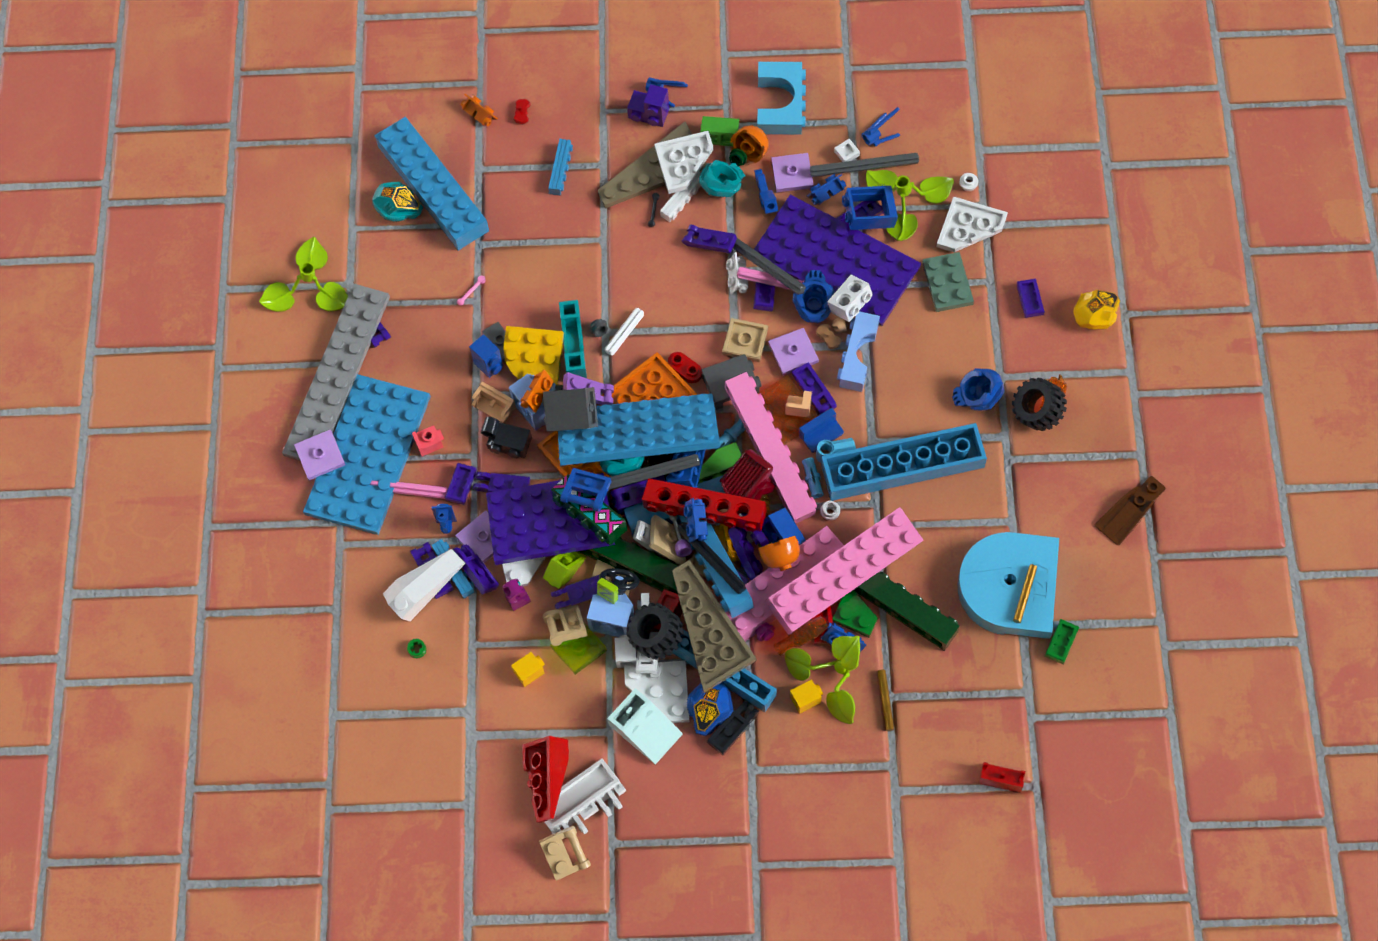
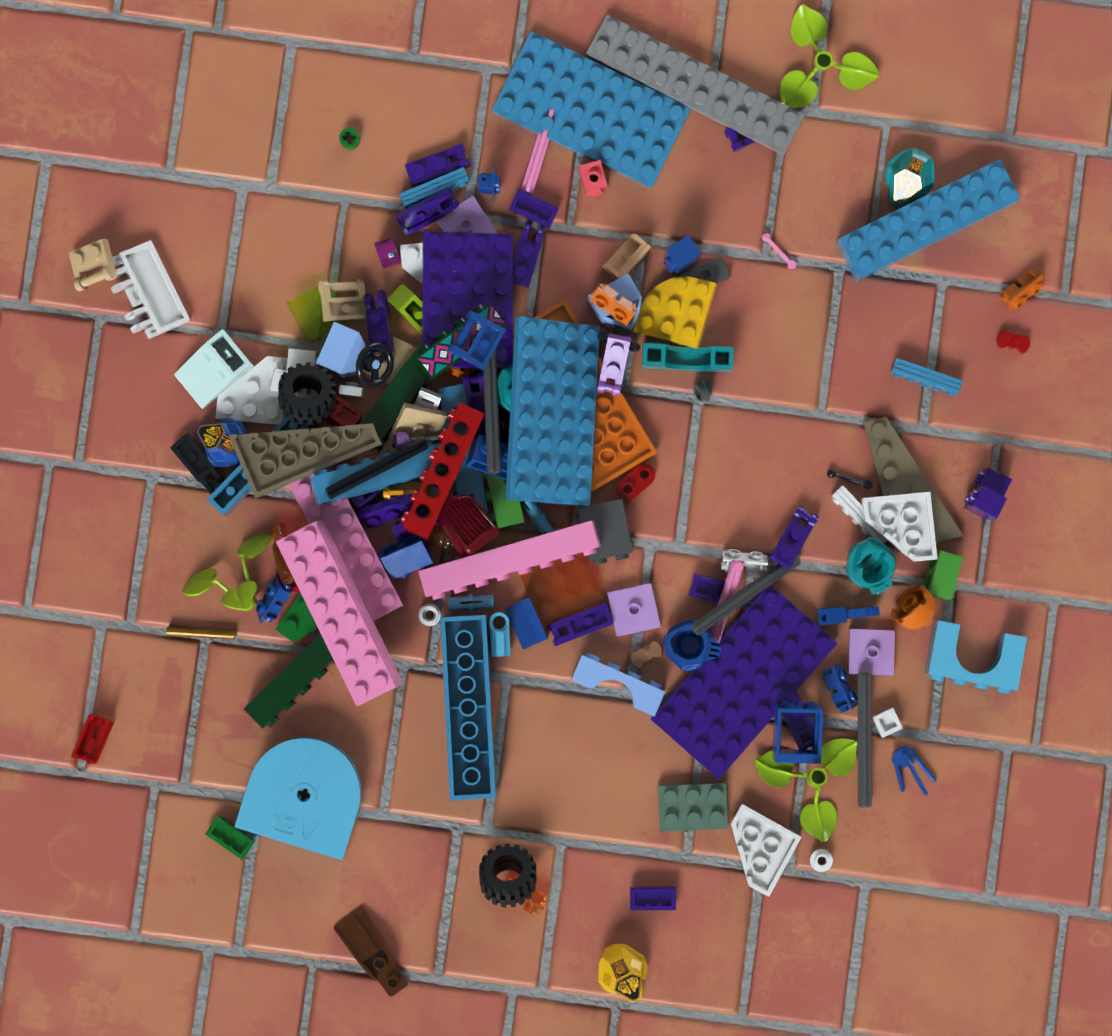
camera: 90 degrees right, 20 degrees up
(319, 454) = (592, 54): lavender plate -> none
(416, 588) = (416, 146): white wedge -> none
(506, 438) = (578, 266): black hinge -> none
(528, 668) = (302, 254): yellow brick -> none
(546, 767) = (189, 260): red wedge -> none
(570, 409) = (580, 337): dark grey panel -> none
(607, 590) = (356, 348): lime tile -> none
(624, 331) = (693, 419): white axle -> none
(661, 83) = (1019, 509): blue plant -> none
(693, 511) = (427, 455): blue hinge -> none
(738, 156) = (900, 590): dark green plate -> none
(746, 339) = (657, 557): tan plate -> none
(765, 632) = (298, 517): magenta plate -> none
(781, 553) = (369, 545): orange cylinder -> none
(799, 405) = (559, 601): light nougat panel -> none
(806, 696) = (217, 547): yellow brick -> none
(839, 325) = (657, 669): light nougat hinge -> none
(850, 298) = (683, 682): white brick -> none
(979, 389) = (541, 811): blue helmet -> none
(1025, 593) = (282, 807): pearl gold bar -> none

